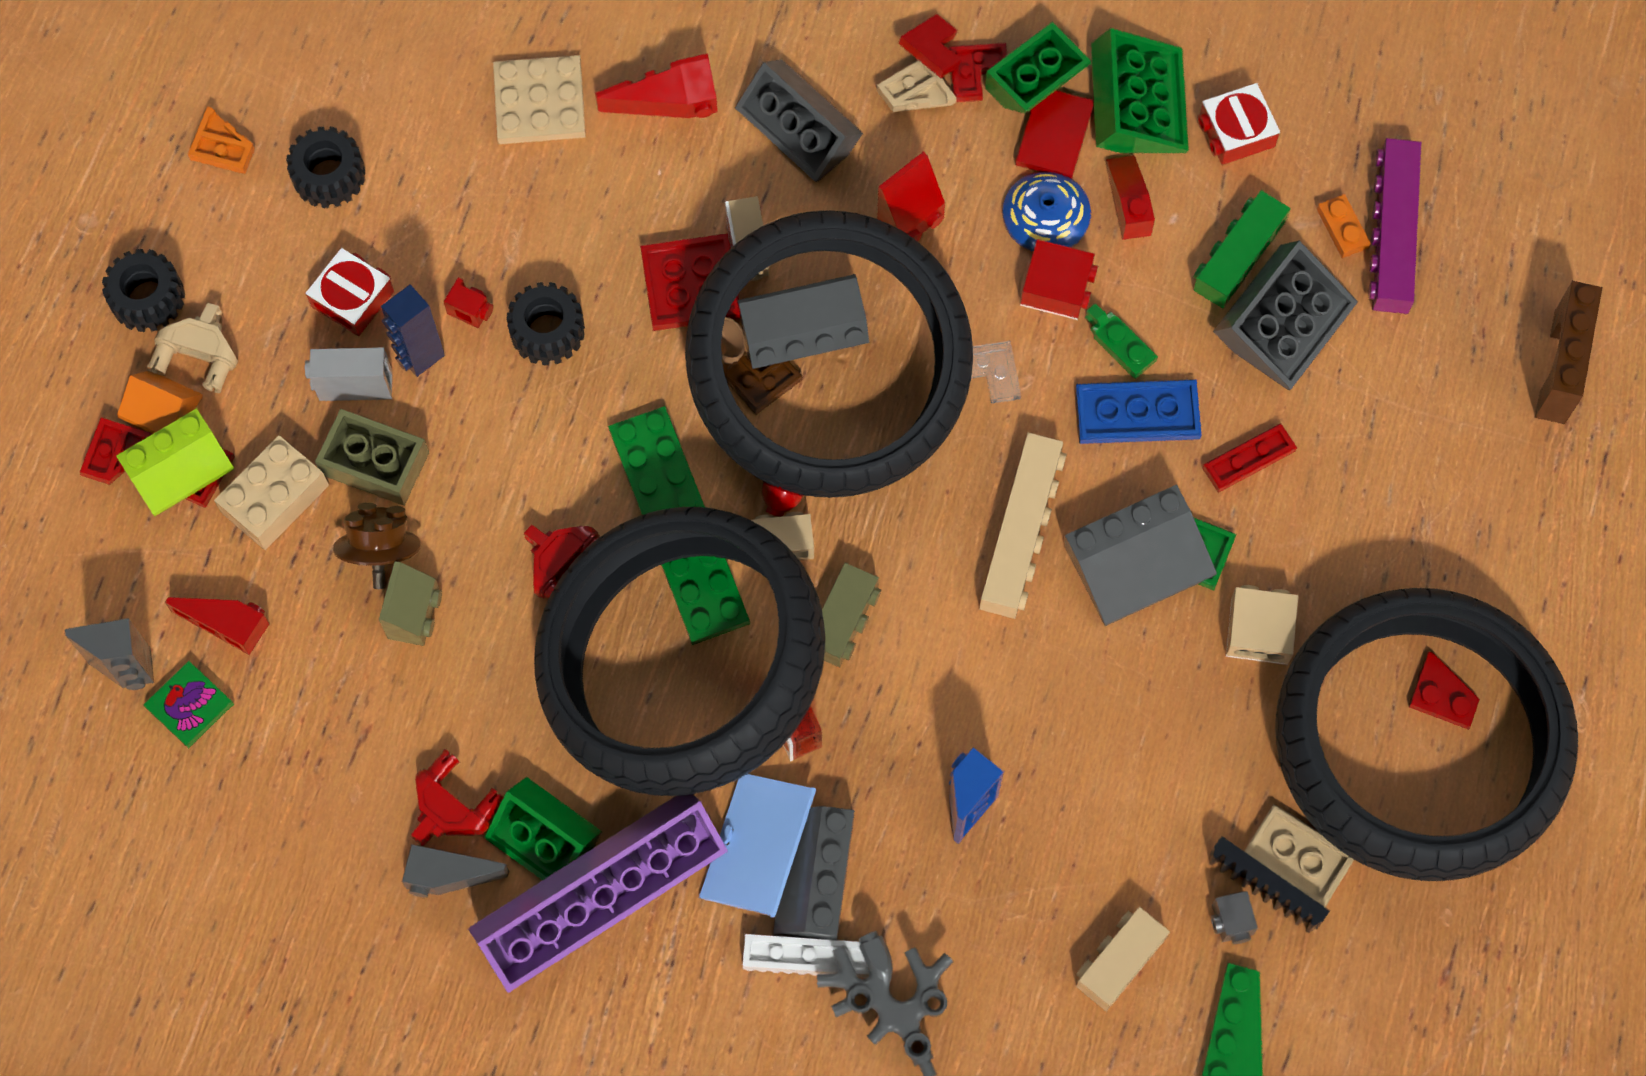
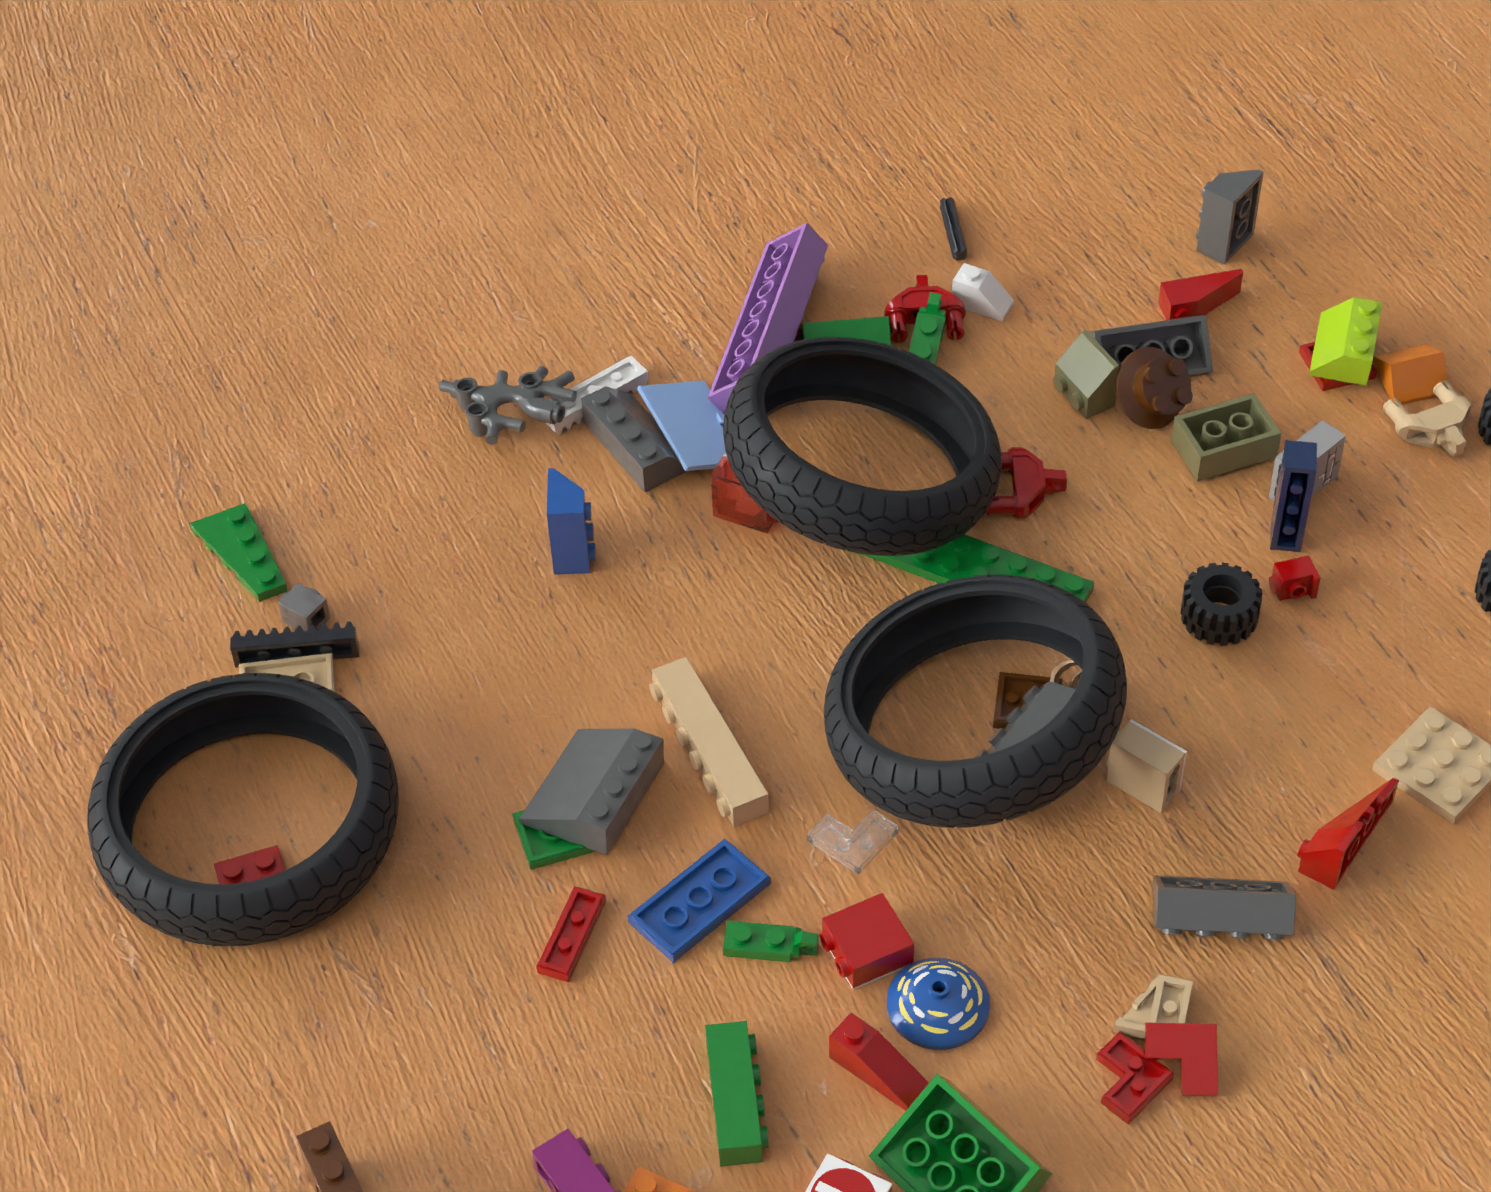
camera: 140 degrees right, 20 degrees down
(108, 441) = (1400, 328): red wing -> none
(188, 704) = (1157, 250): green tile -> none
(271, 492) = (1266, 367): tan brick -> none
(320, 598) = (1179, 337): none -> dark grey slope
(322, 884) = (953, 228): none -> black axle
(350, 291) = (1384, 523): piece -> none
(386, 781) = (981, 292): none -> white slope
(443, 872) = (881, 279): dark grey slope -> none
(480, 768) = (929, 330): none -> green hinge
(676, 274) = (1169, 708): red plate -> none
(793, 530) = (877, 595): tan brick -> none
(846, 611) = (781, 588): olive brick -> none
(912, 198) = (1045, 888): red slope -> none
(1035, 70) = (1067, 1095): green slope -> none
(1055, 134) = (1002, 1074): red tile -> none
(1121, 958) = (368, 533): tan brick -> none
(1262, 625) = (447, 806): tan piece -> none
(1286, 314) = (643, 1066): dark grey slope -> none

